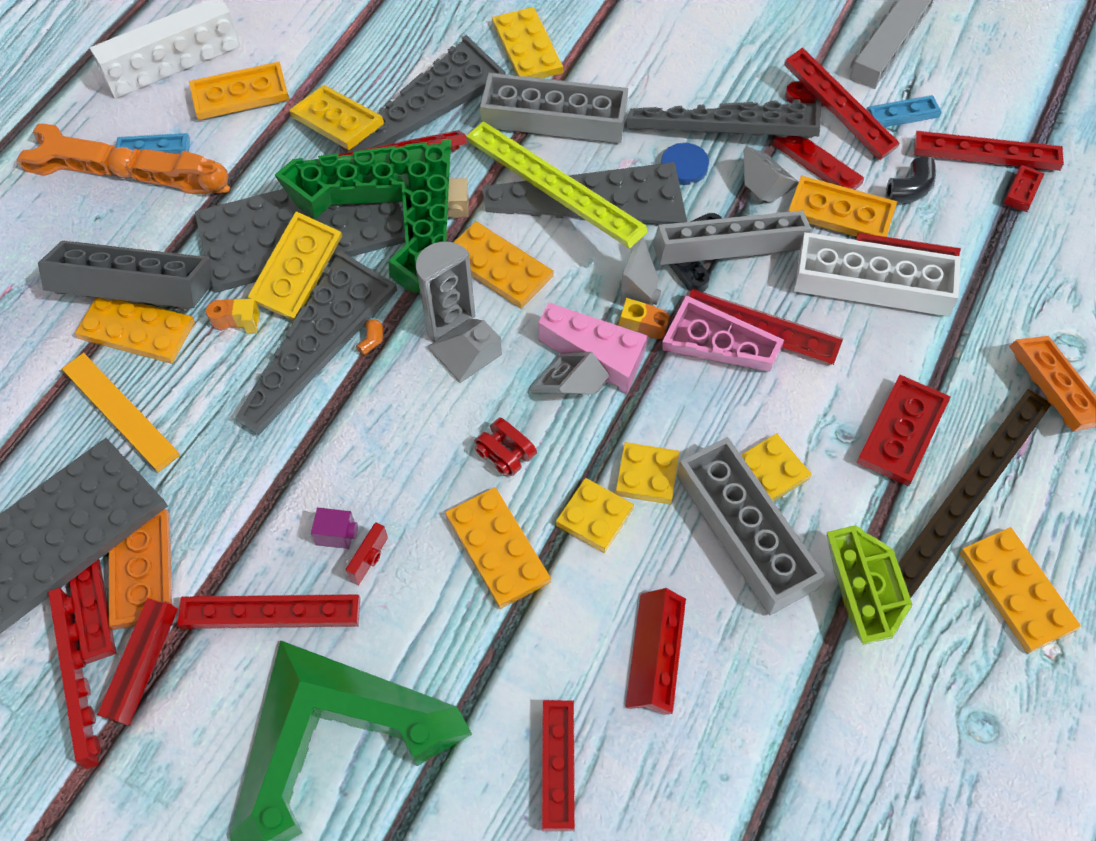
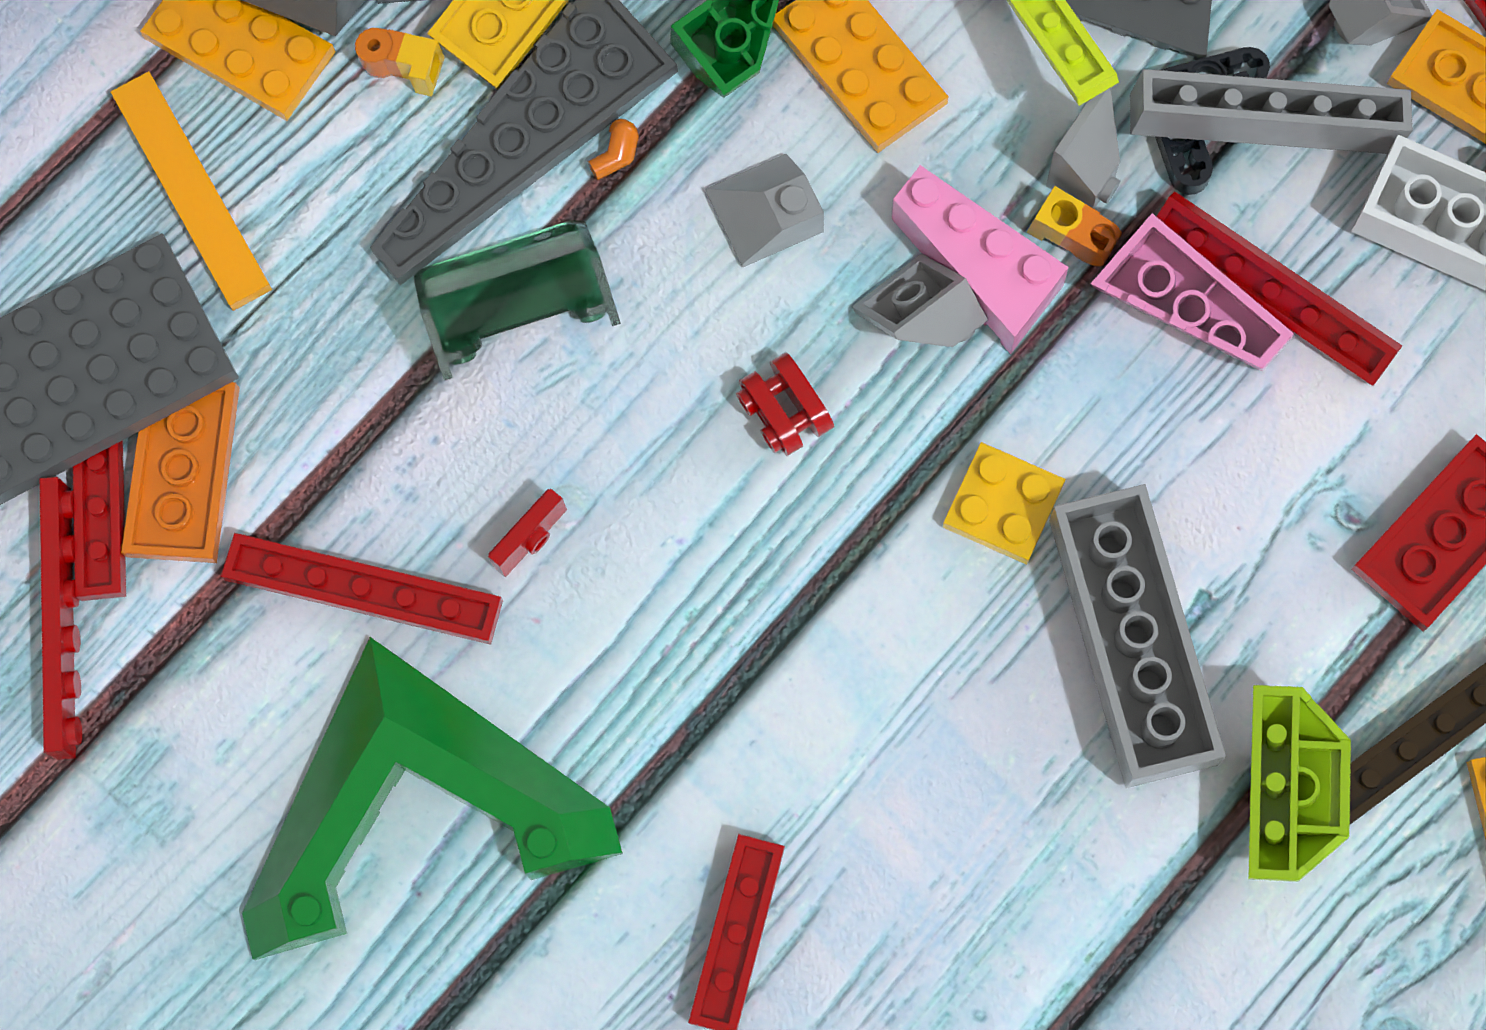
camera: 20 degrees right, 15 degrees up
(138, 661) = (155, 619): red panel -> none
(329, 419) = (511, 287): none -> clear green windscreen
(334, 528) = (486, 477): magenta brick -> none
(445, 287) = (749, 108): light grey brick -> none
(498, 547) = (733, 569): light orange plate -> none
(595, 515) = (899, 554): yellow plate -> none
(656, 651) = (932, 800): red panel -> none
(776, 466) = (1210, 545): yellow plate -> none

